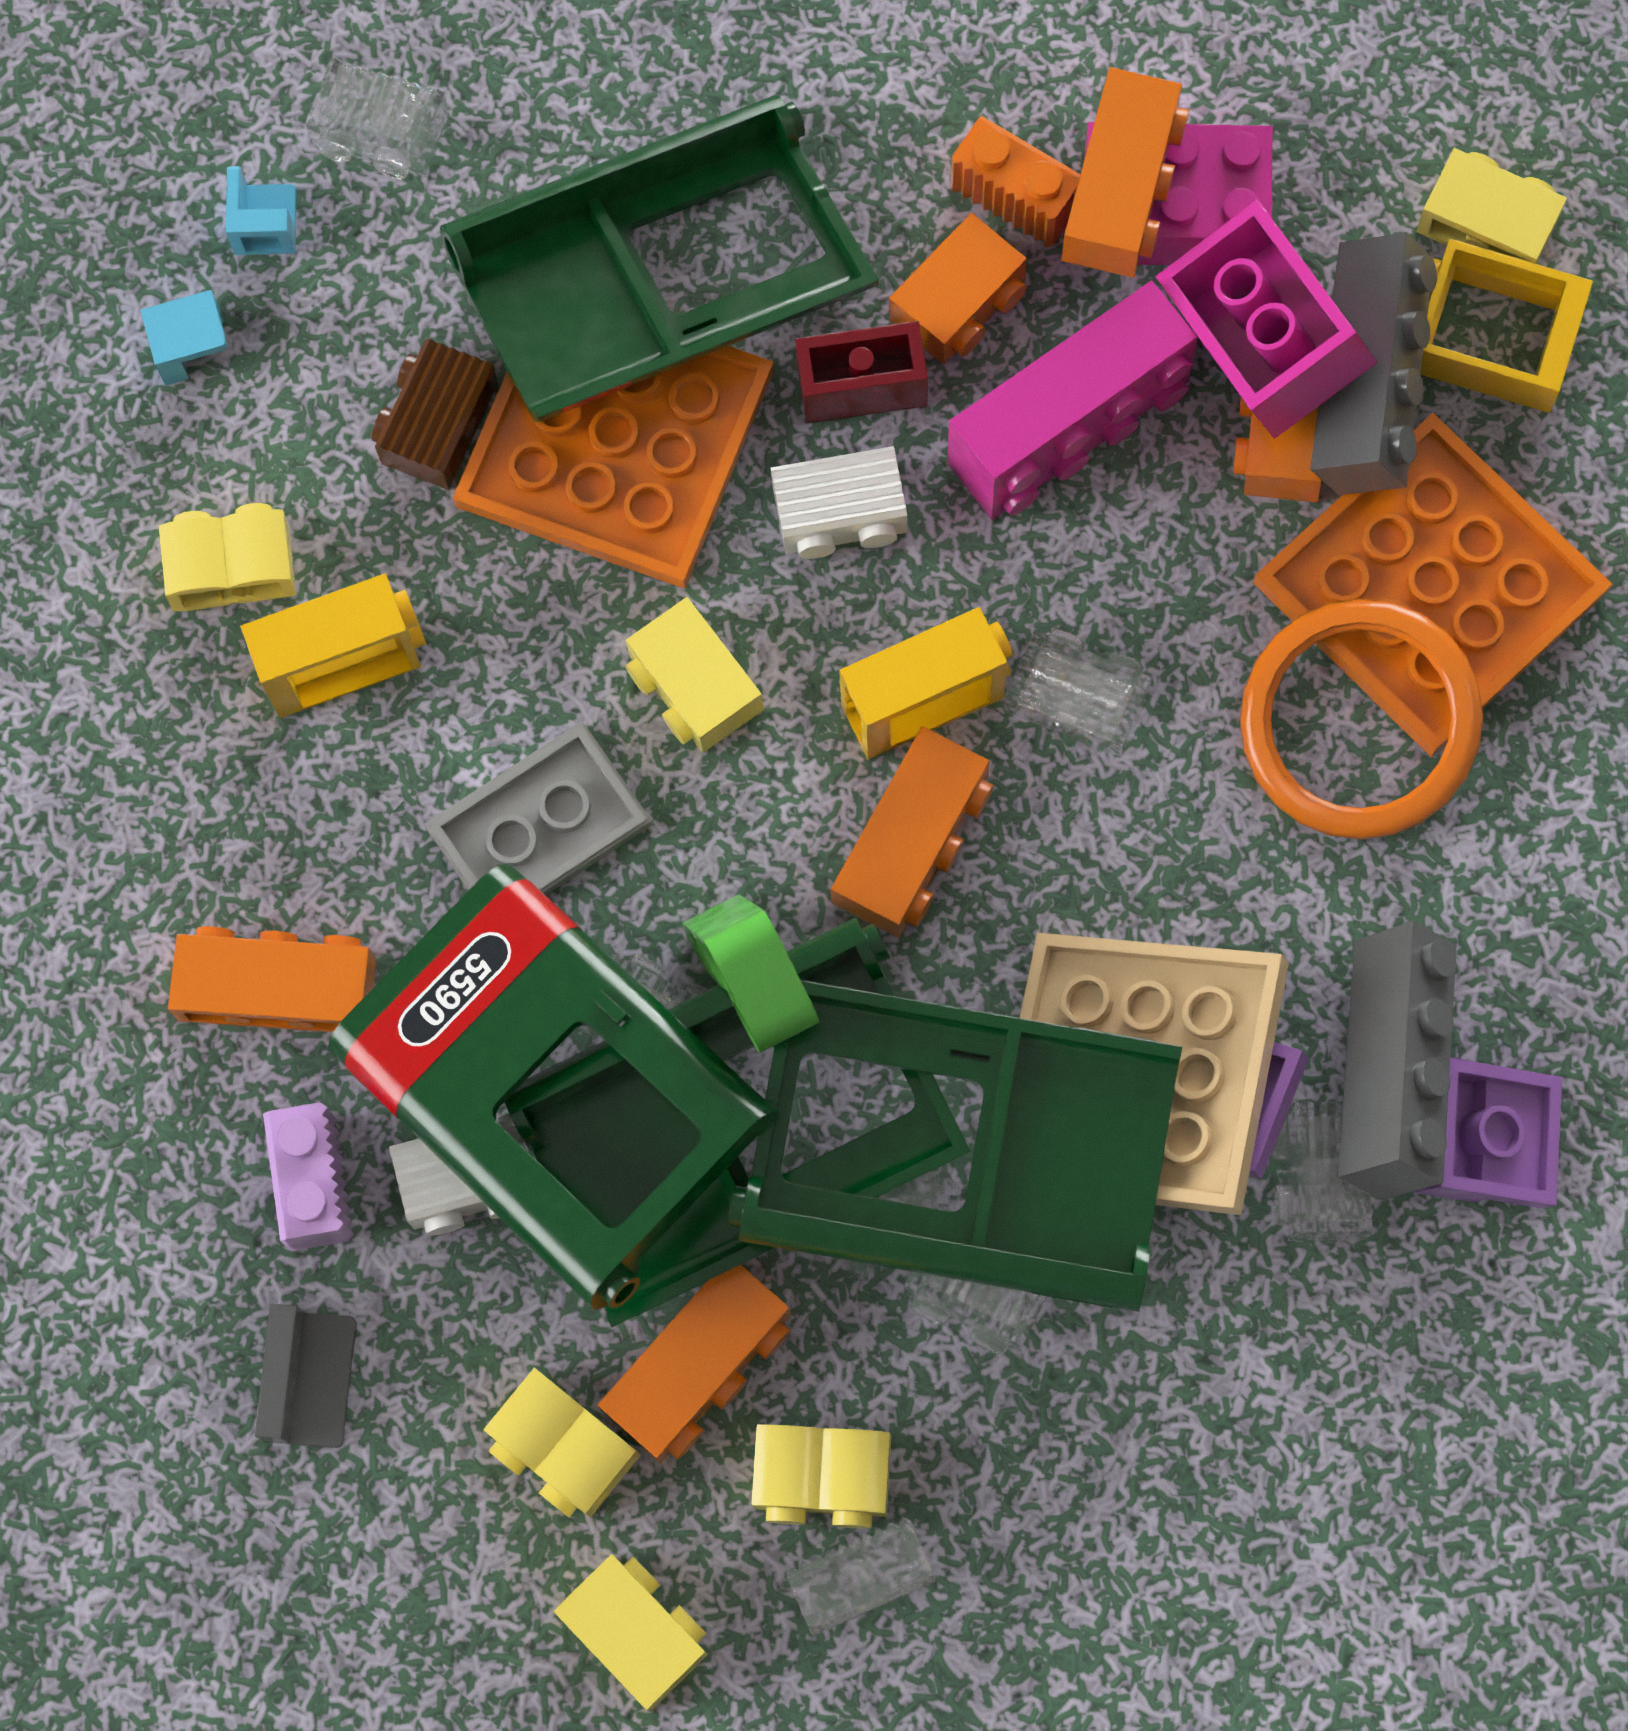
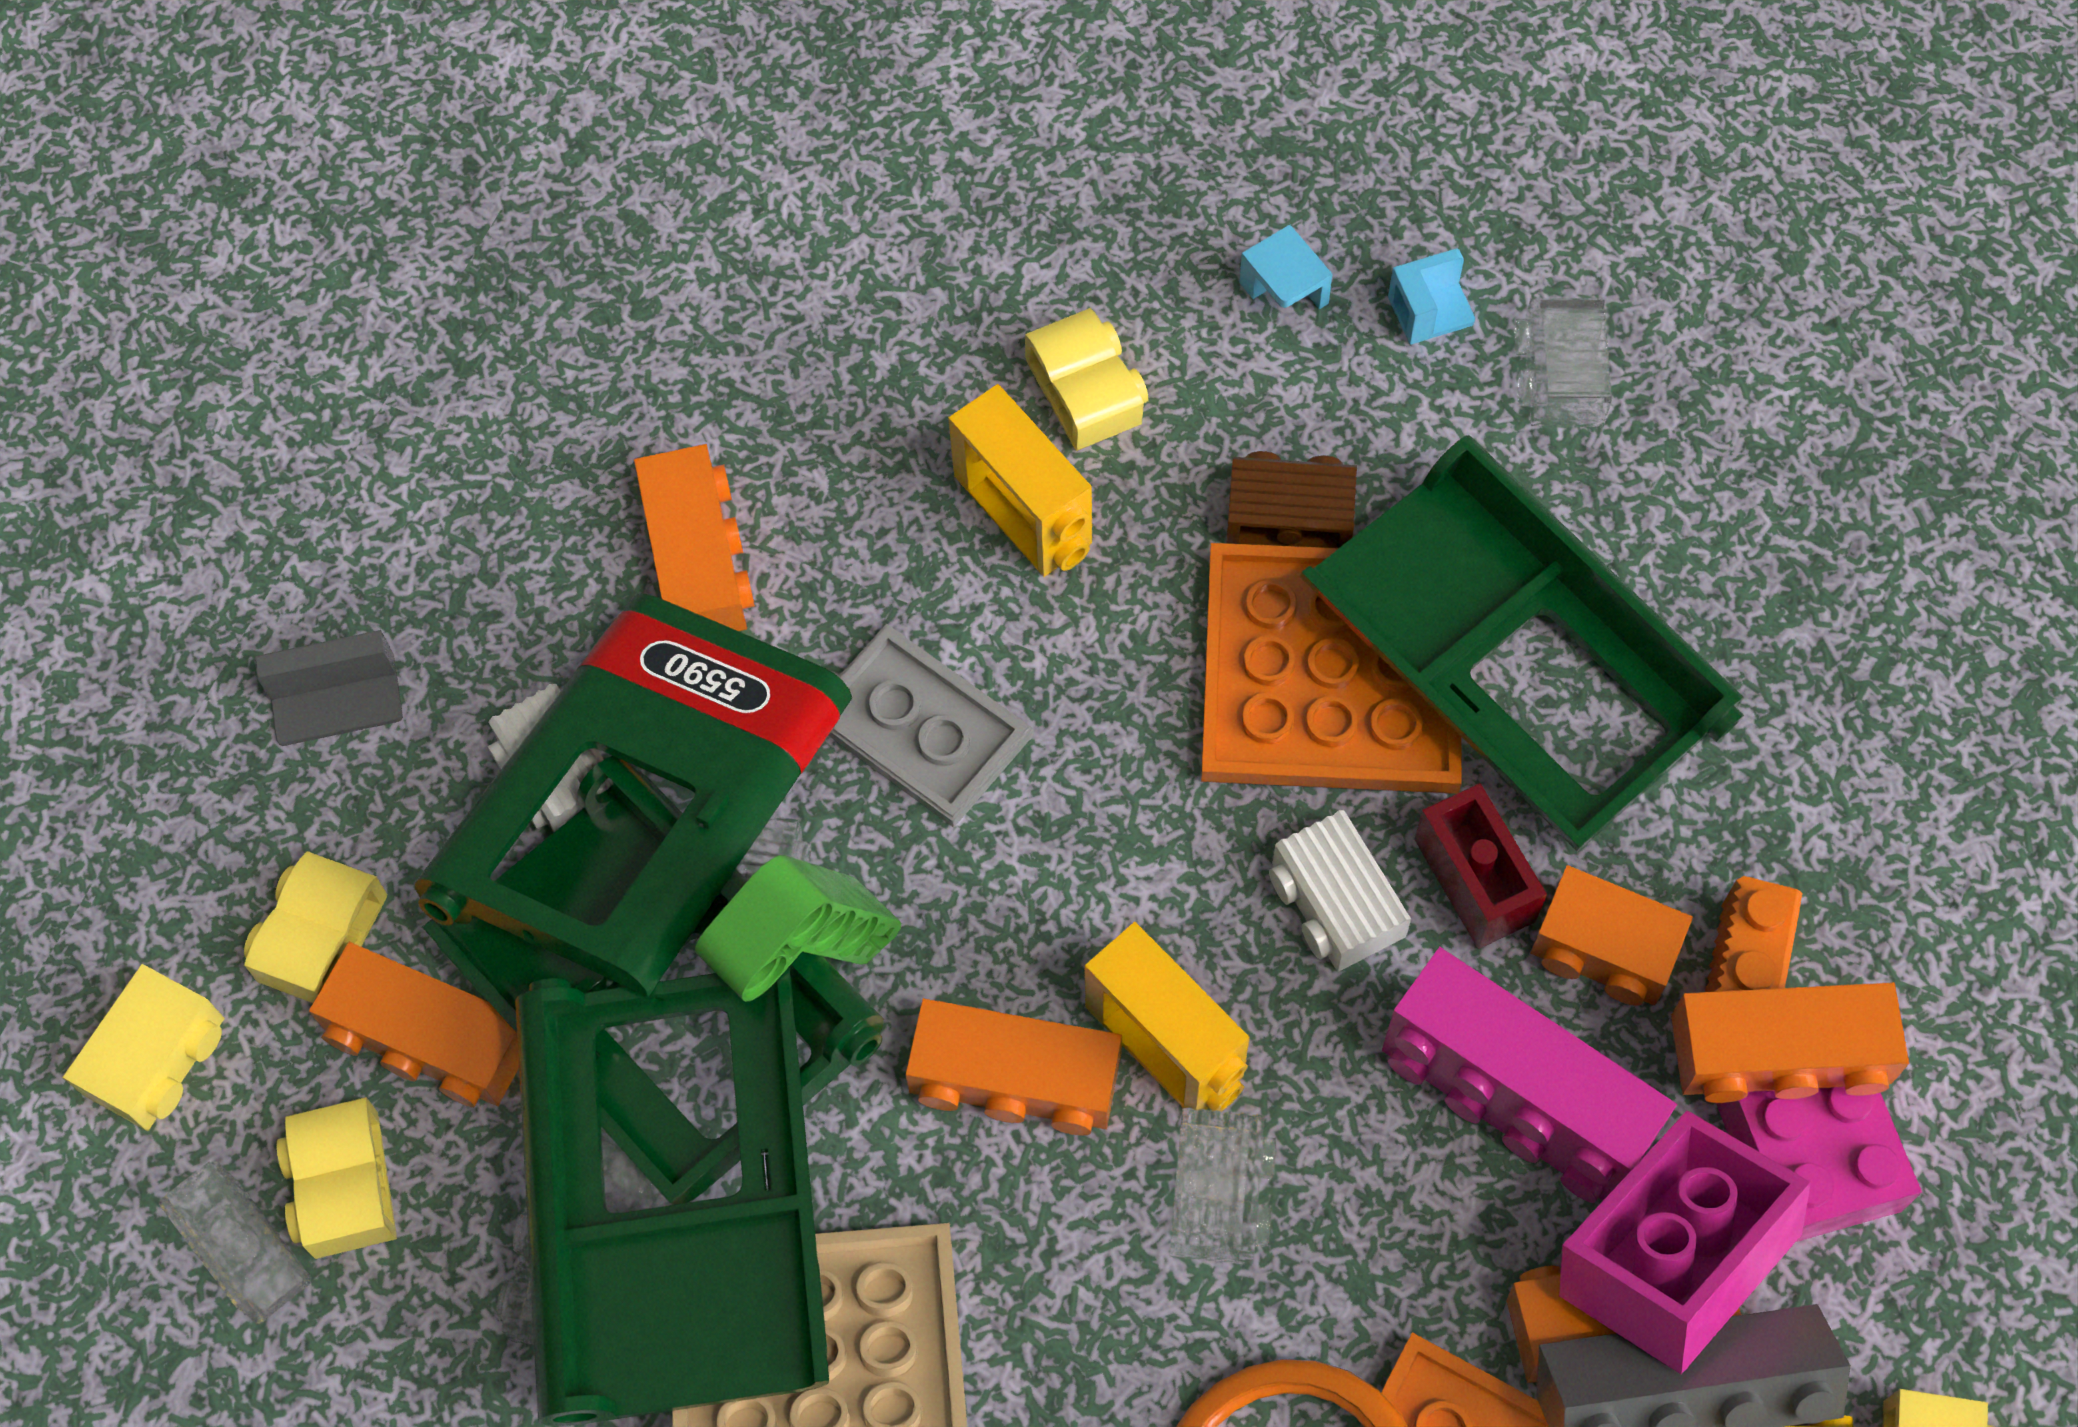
camera: 70 degrees right, 10 degrees down
(307, 1176) = (515, 629): lavender brick -> none
(693, 676) = (1108, 810): light yellow brick -> none

